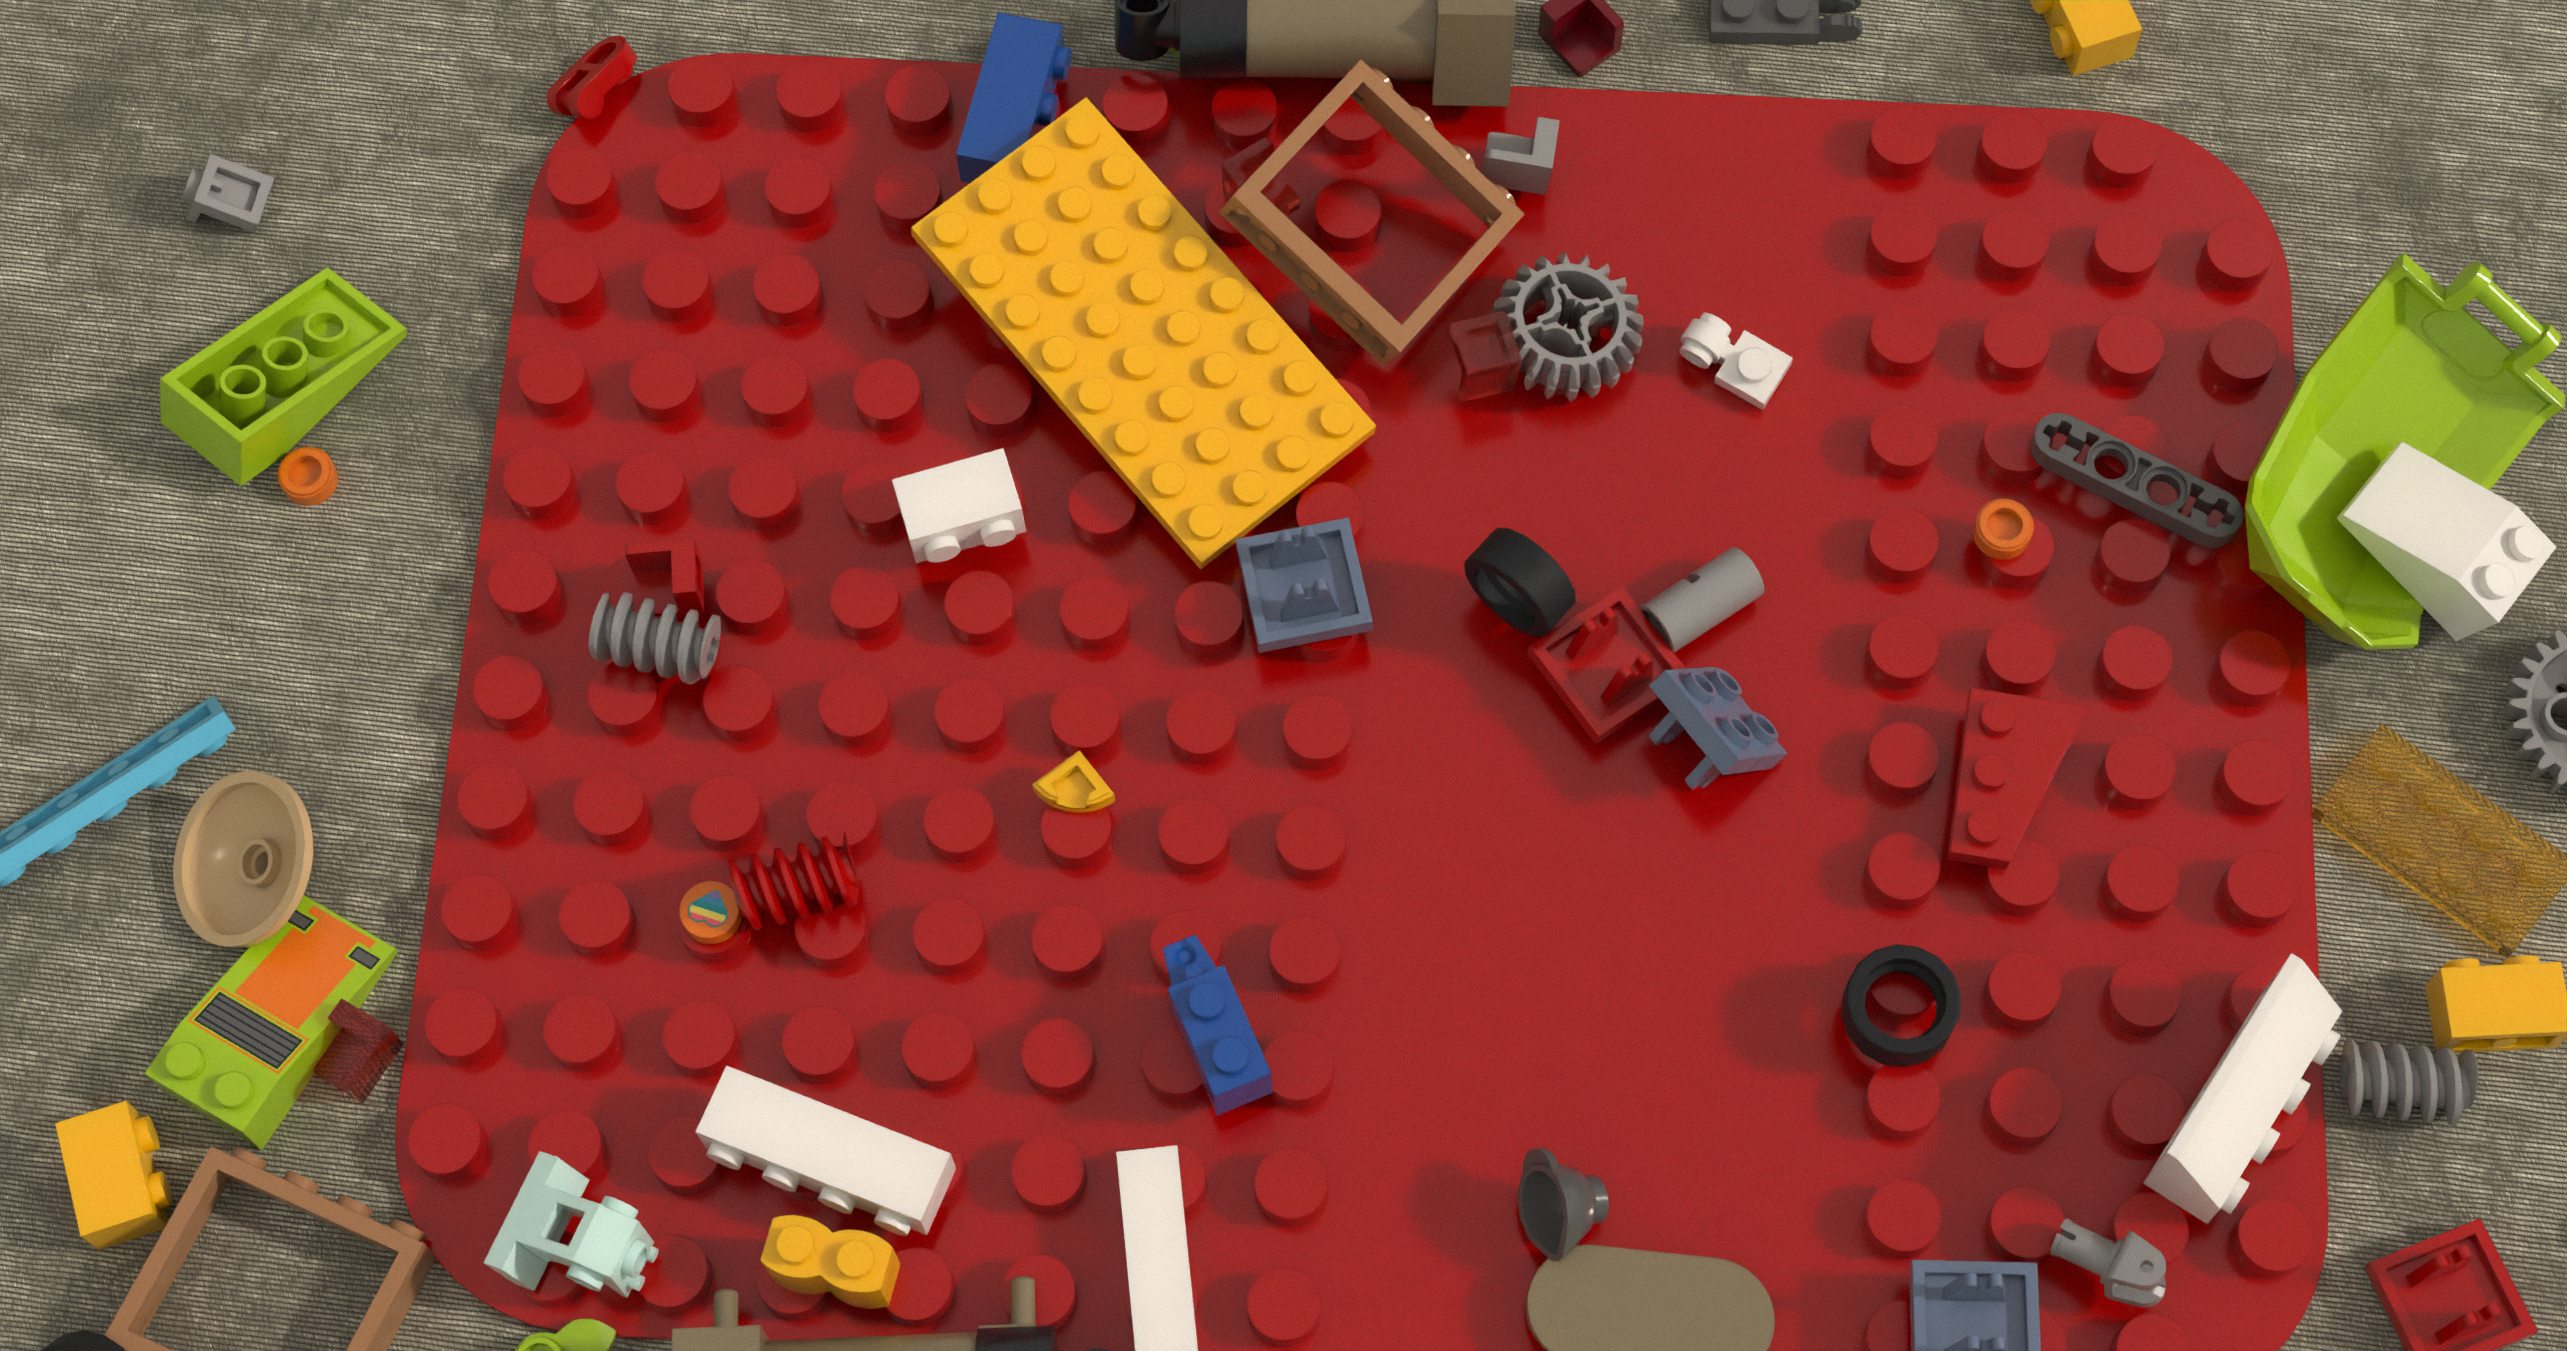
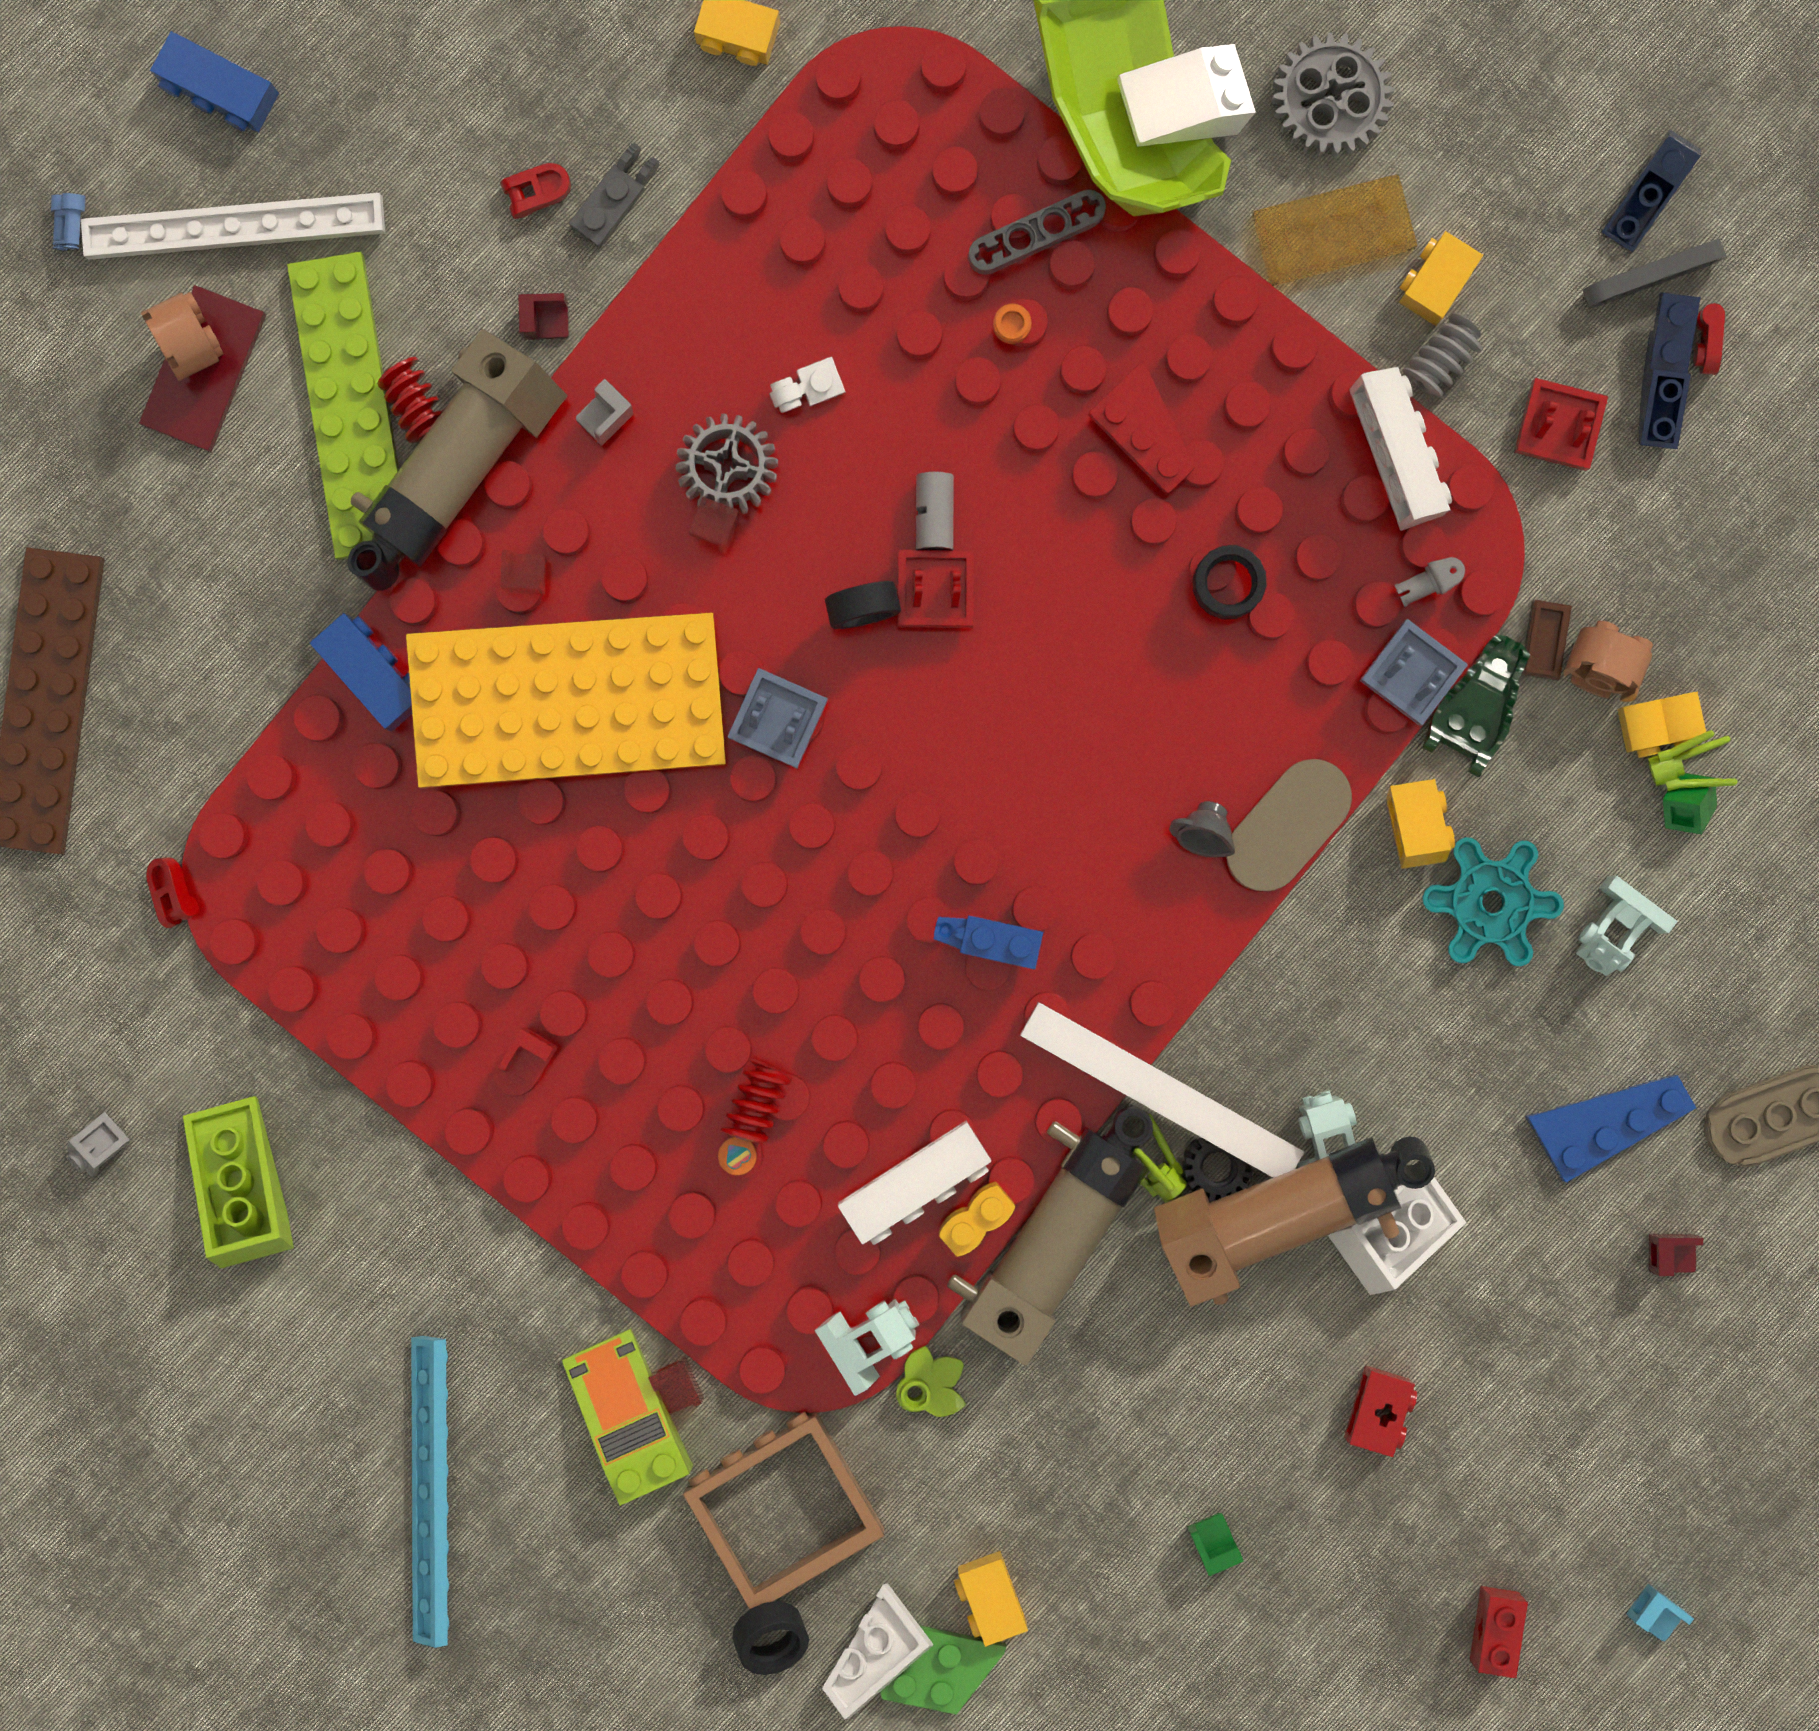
camera: 55 degrees left, 20 degrees up
(114, 1174) = (657, 1550): yellow brick -> none
(243, 859) = (529, 1381): tan dish -> none
(307, 476) = (310, 1206): orange tile -> none
(654, 640) = (561, 1085): light grey piece -> none
(960, 506) = (602, 872): white brick -> none
(1074, 787) = (803, 918): yellow tile -> none
(1314, 270) = (602, 584): medium nougat window -> none
(1718, 720) = (1012, 559): sand blue plate -> none

